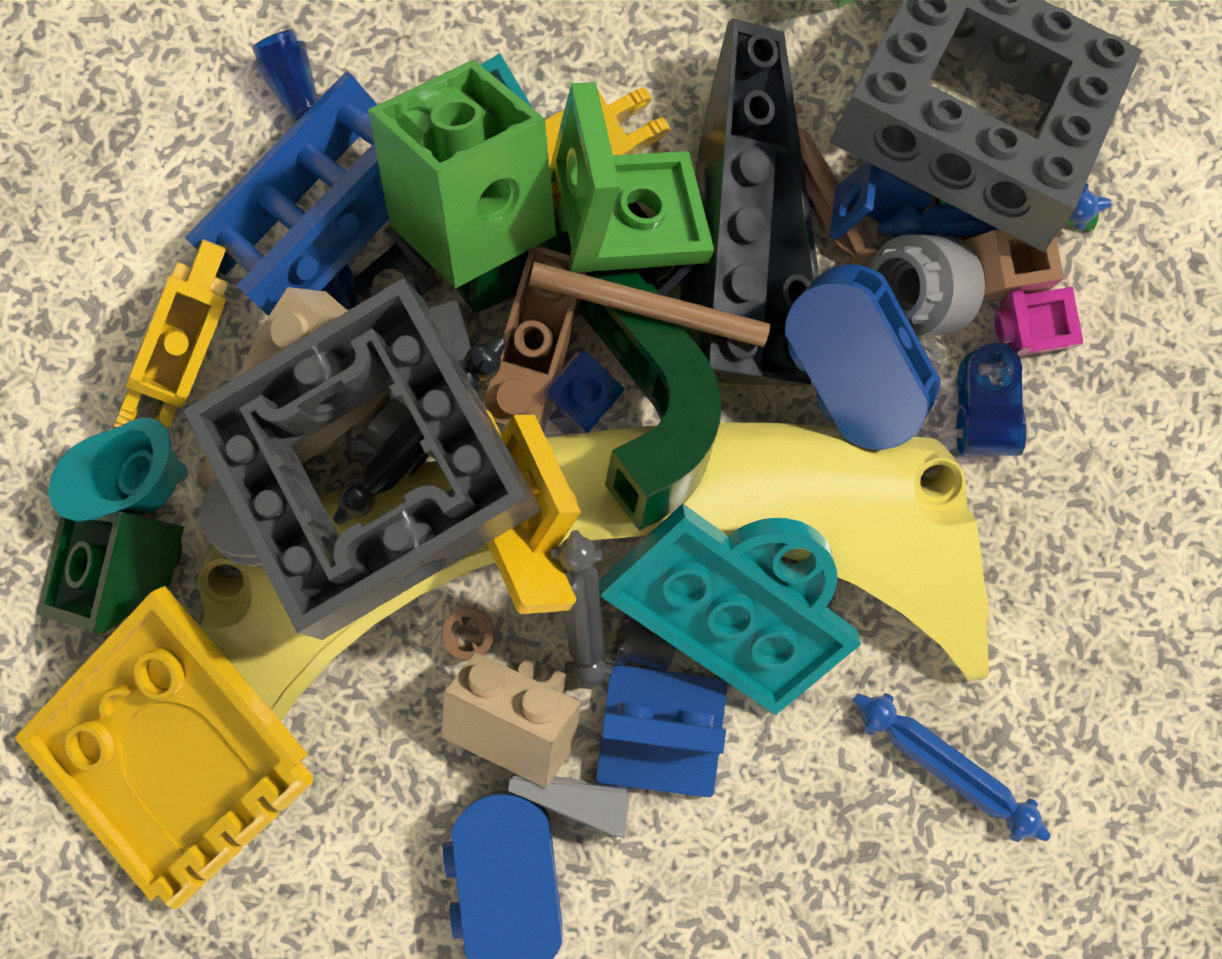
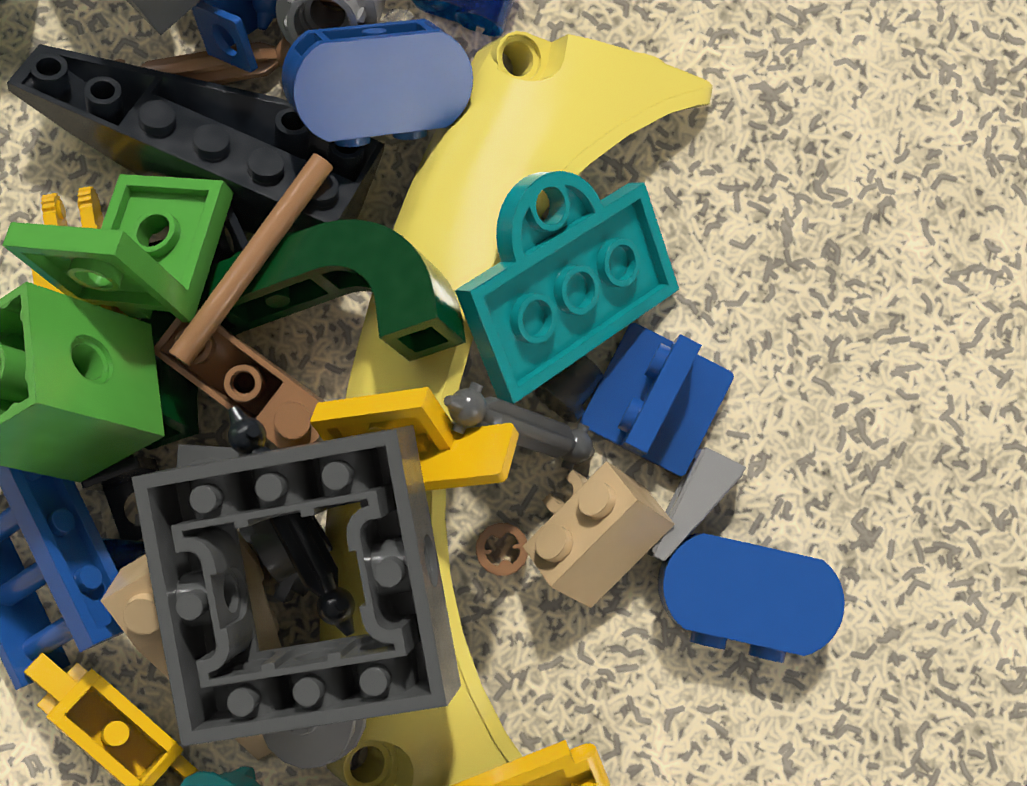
camera: 70 degrees left, 0 degrees up
(581, 394) = (315, 358): clear blue bracket -> none
(951, 767) = (781, 148): blue wheel -> none

